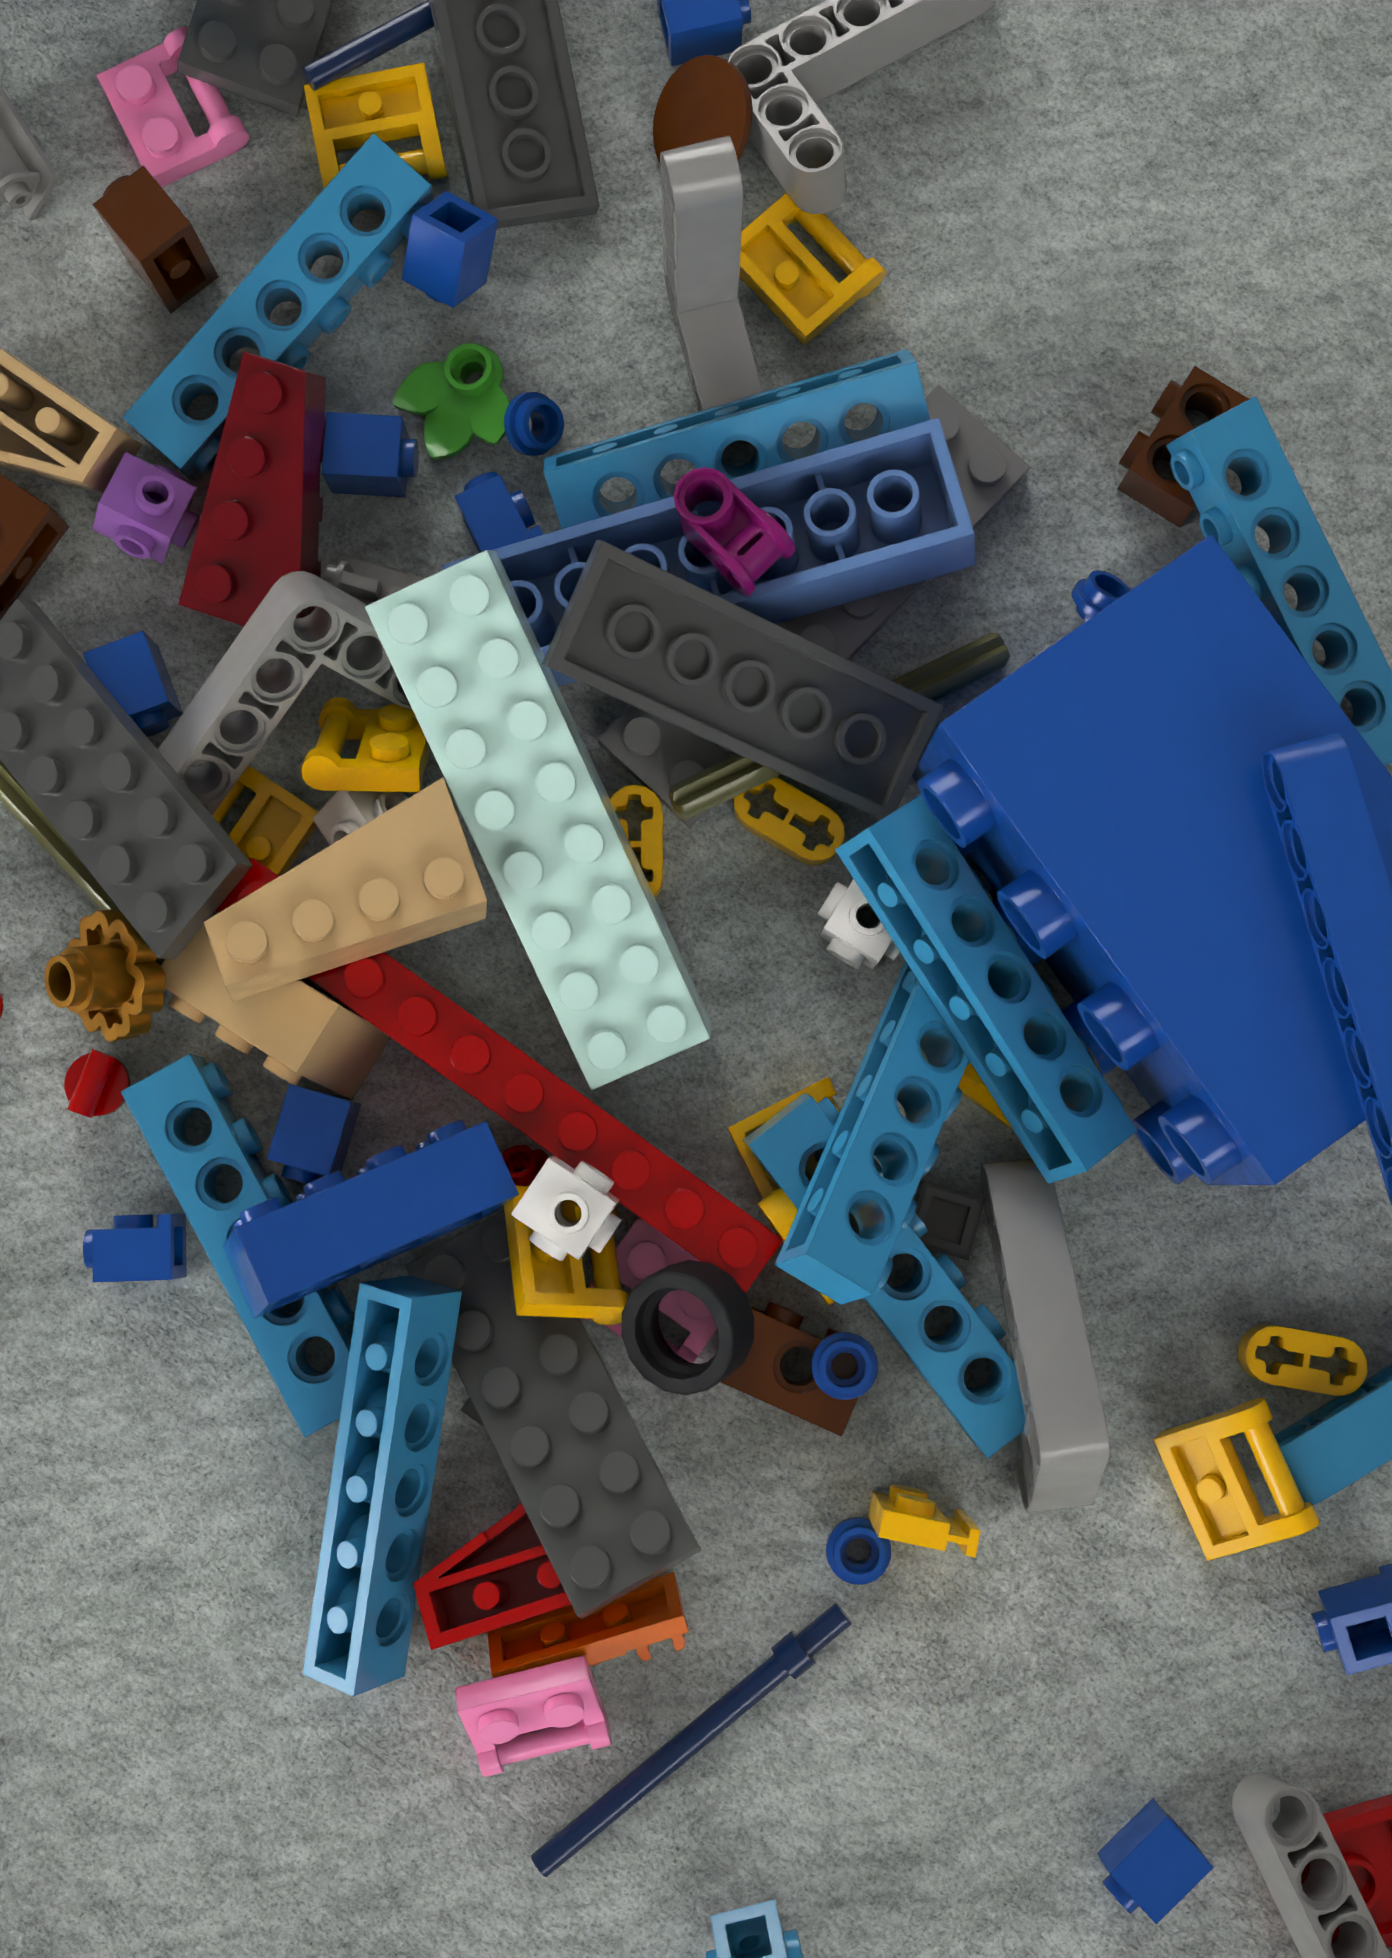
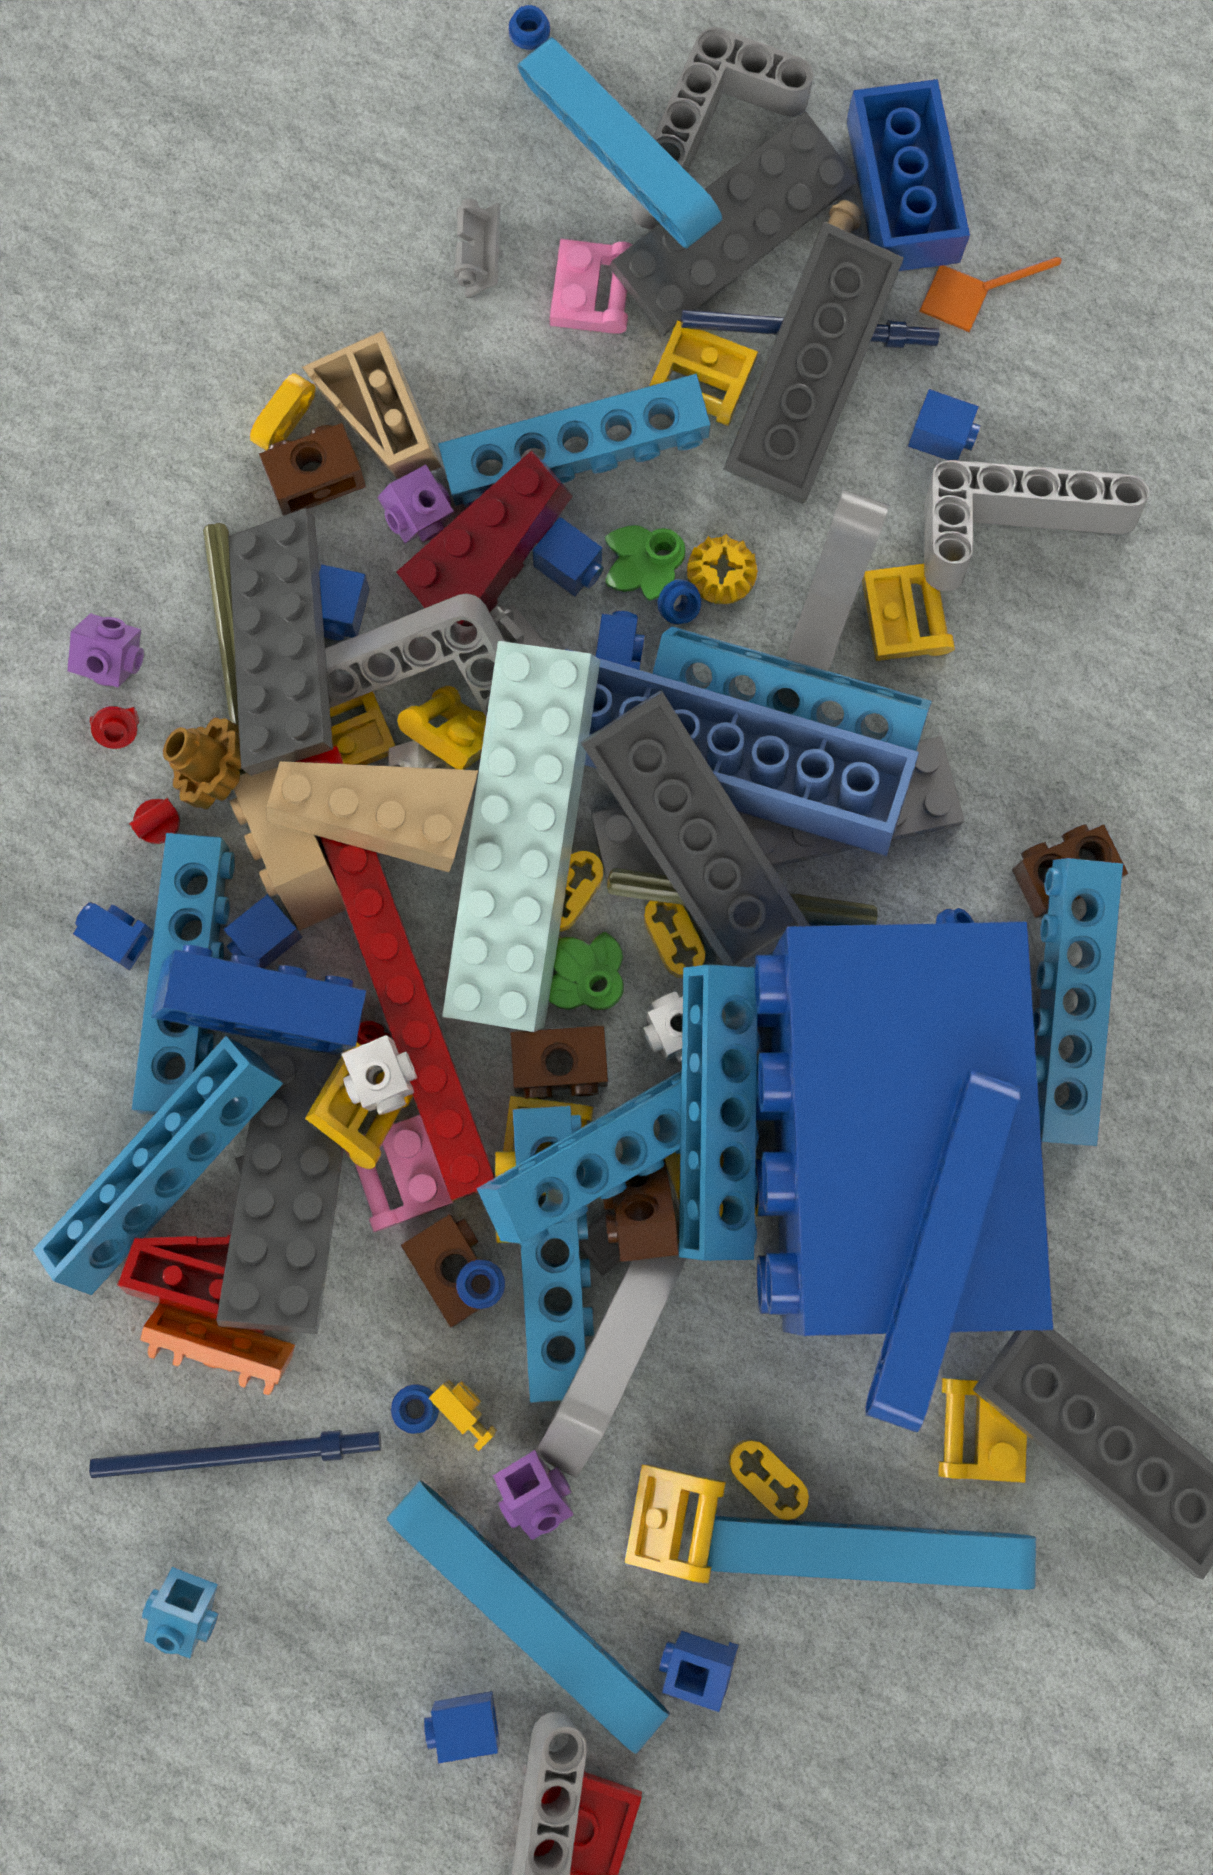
camera: 30 degrees right, 5 degrees down
(155, 238) = (528, 354): reddish brown brick -> none
(449, 249) = (698, 468): blue brick -> none
(533, 1714) = (156, 1361): bright pink plate -> none
(583, 357) = (736, 583): none -> yellow gear
(652, 1353) = (373, 1187): black tyre -> none
(703, 103) = (906, 484): reddish brown piece -> none
(707, 923) = (581, 967): none -> bright green plate
(738, 537) = (746, 743): magenta piece -> none
(773, 1015) = (581, 1044): none -> reddish brown brick
(980, 1167) = (643, 1218): none -> reddish brown brick
(1060, 1558) = (533, 1495): none -> medium lavender brick
(1140, 1692) = (528, 1617): none -> dark azure beam

